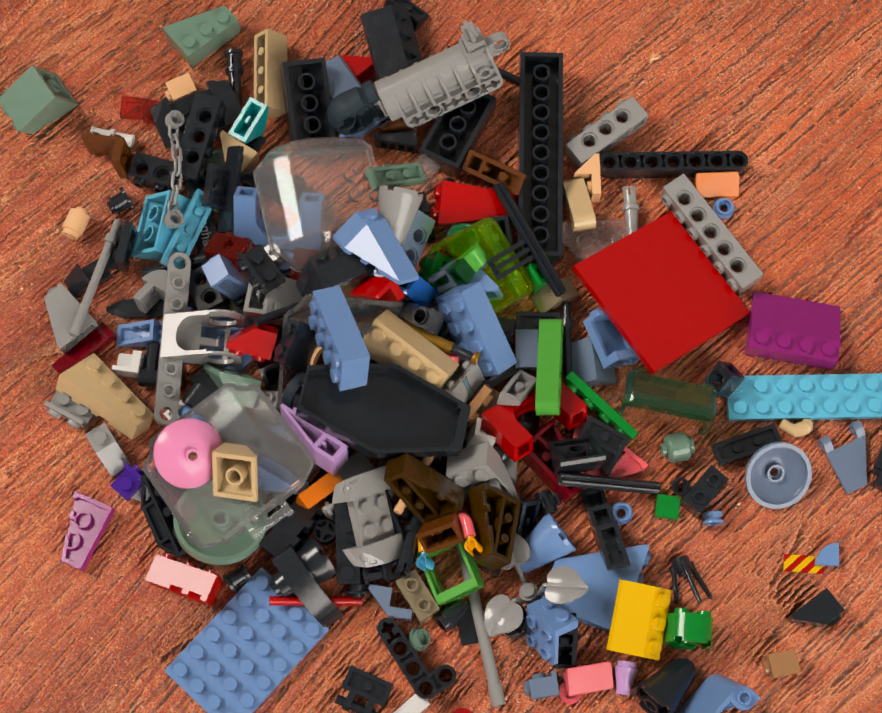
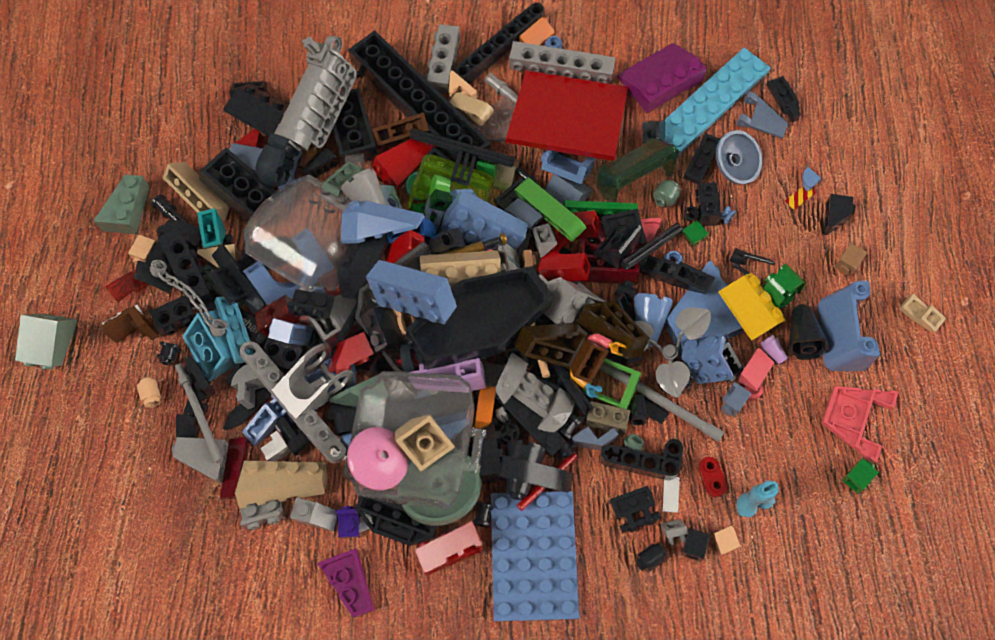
camera: 40 degrees left, 5 degrees down
(797, 430) = (720, 126): tan arm -> none

